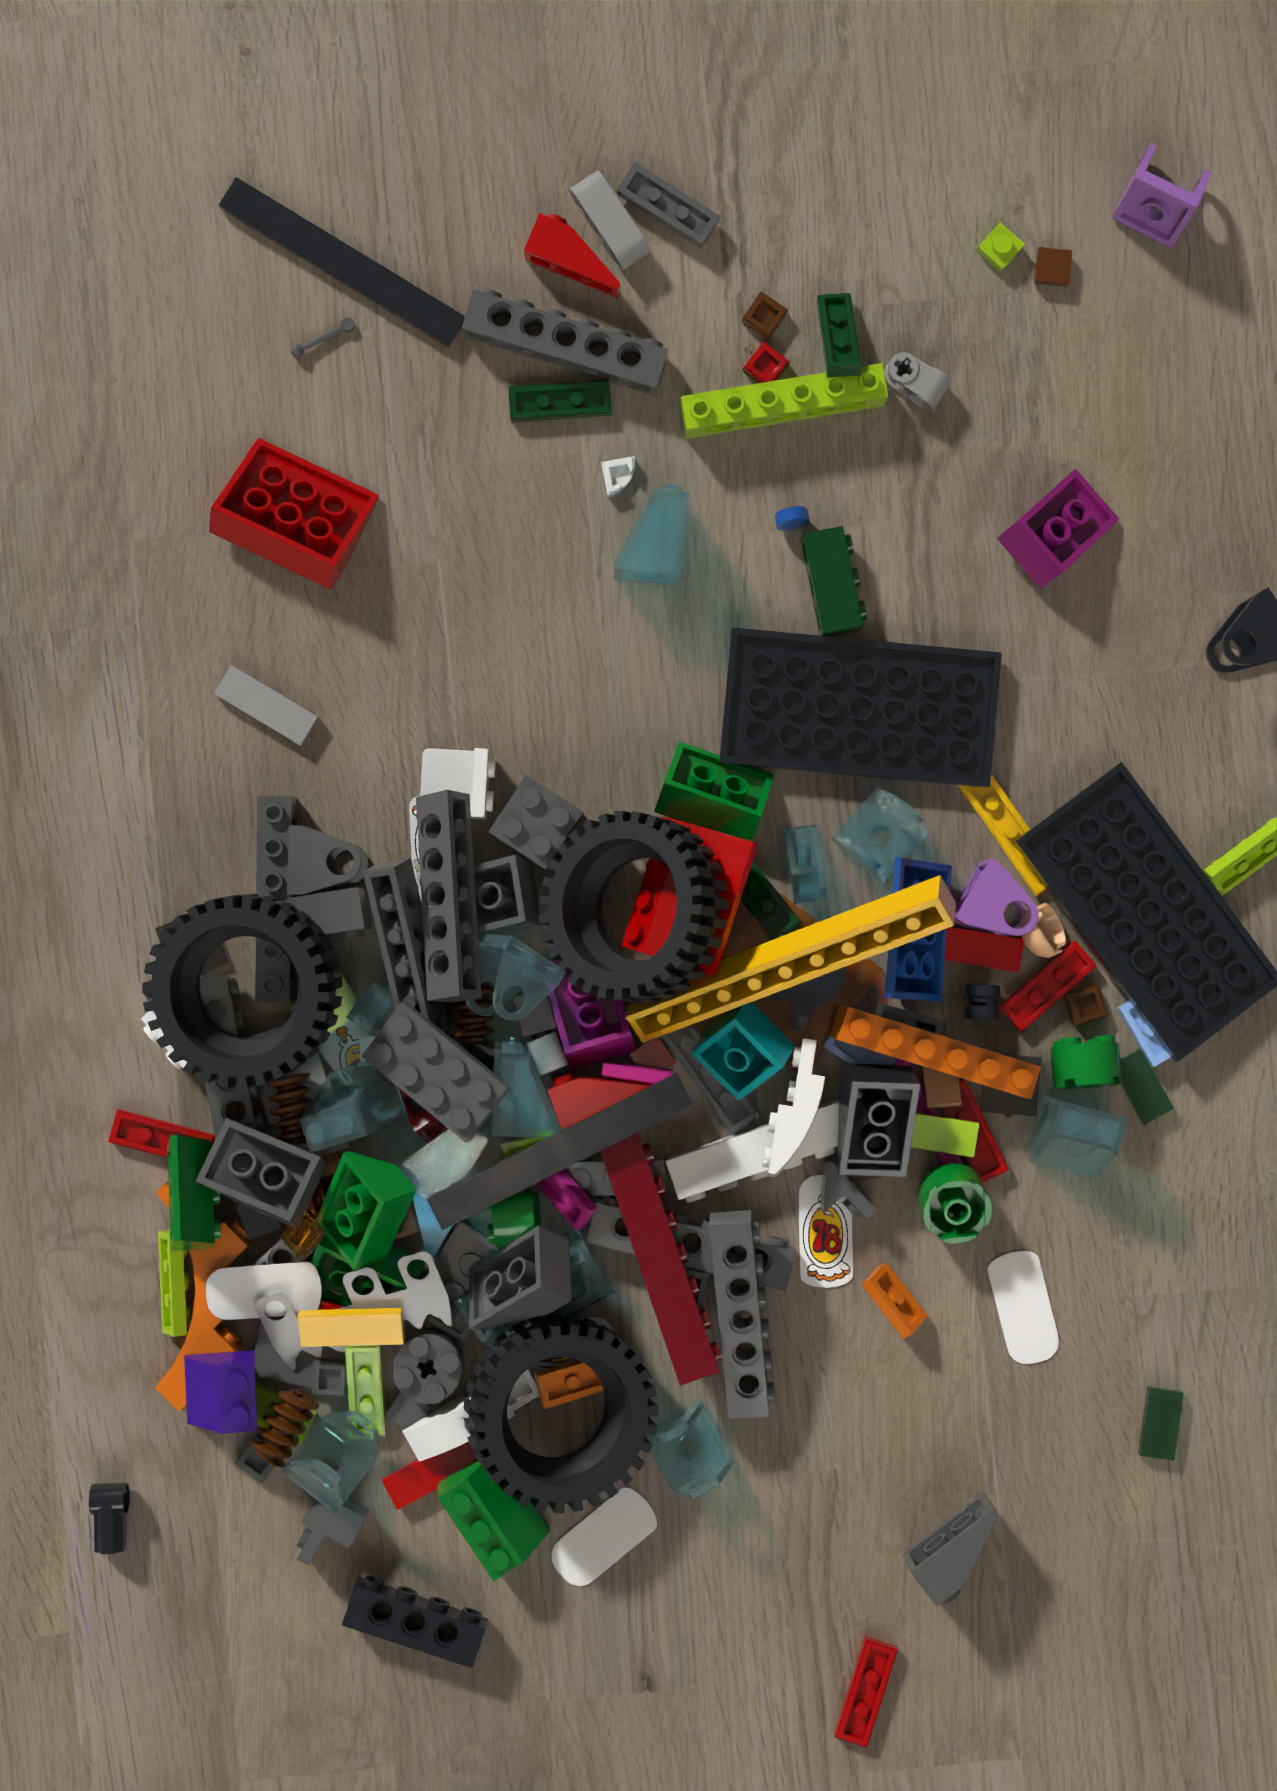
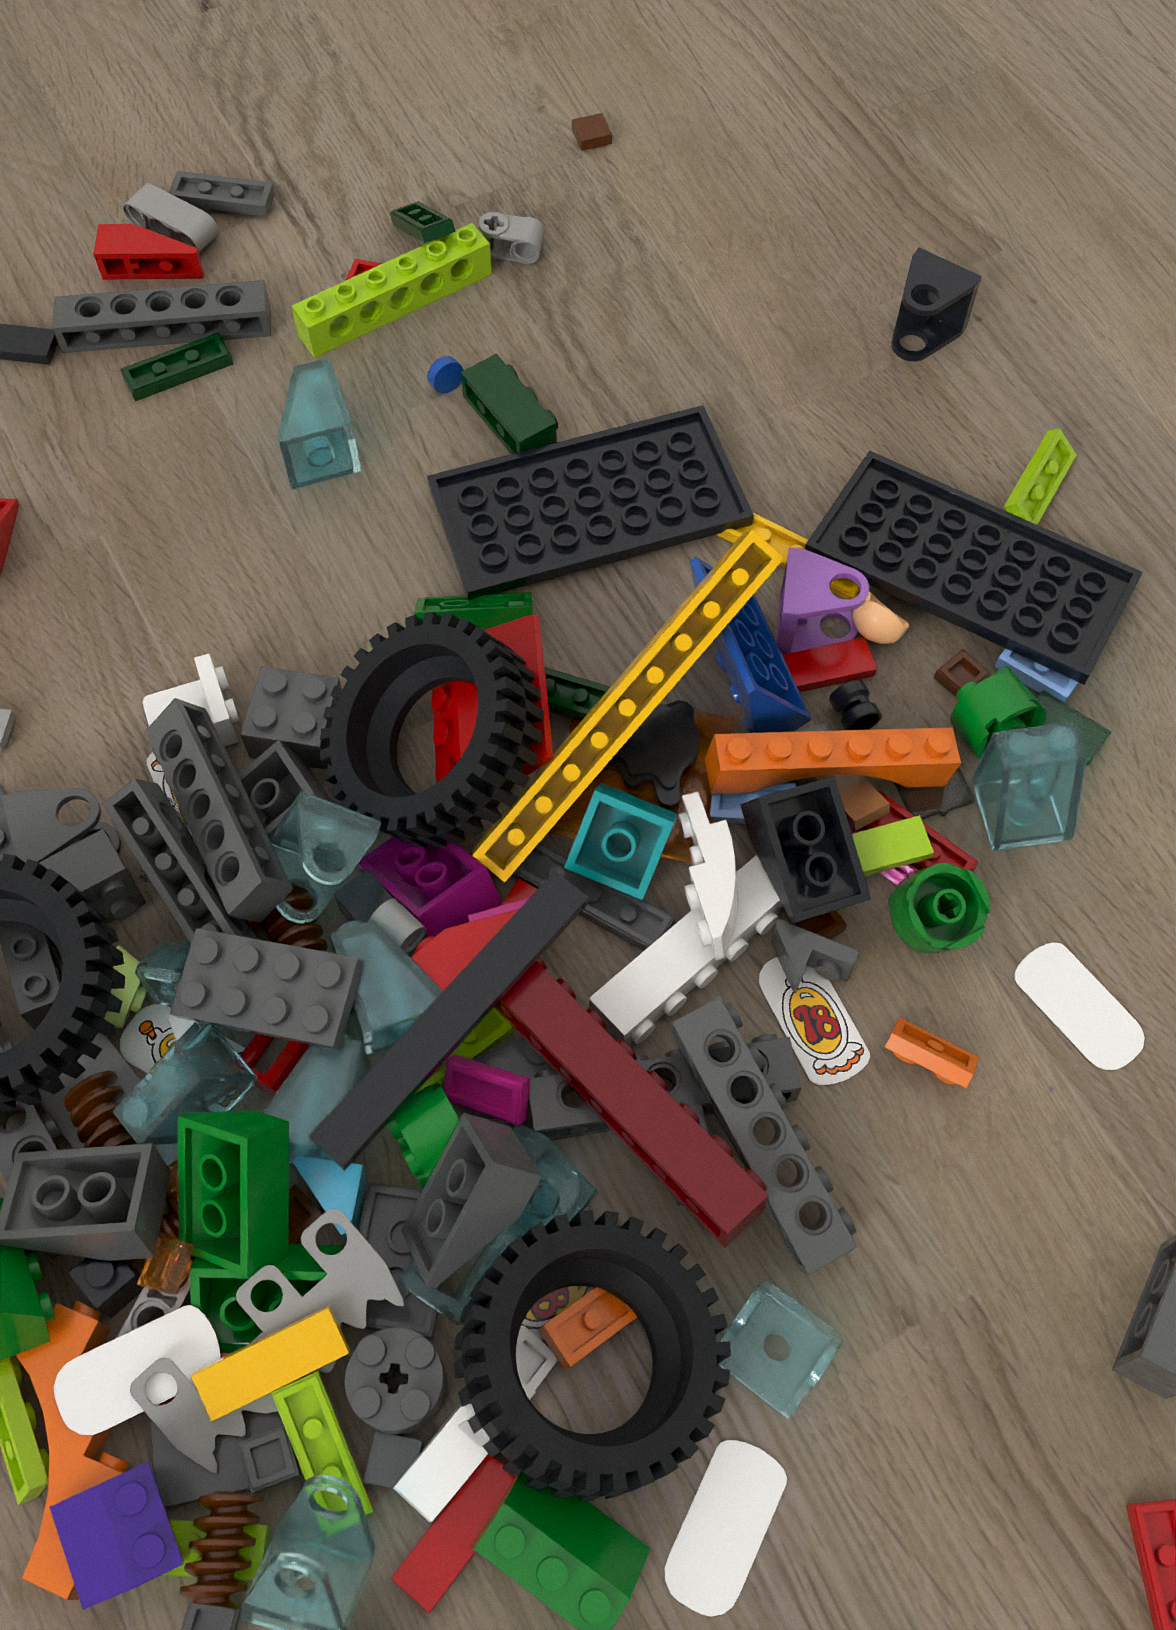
camera: 20 degrees left, 25 degrees down
(618, 474) = (258, 402): white tile -> none
(764, 315) = (348, 243): reddish brown tile -> none
(805, 864) = (601, 650): clear light blue slope -> none
(898, 818) = (660, 577): clear light blue hose -> none
(1000, 247) = (538, 133): lime plate -> none
(1047, 986) = (913, 673): red tile -> none
(1058, 529) = (699, 301): magenta slope -> none
(1150, 190) = (647, 33): medium lavender hose -> none

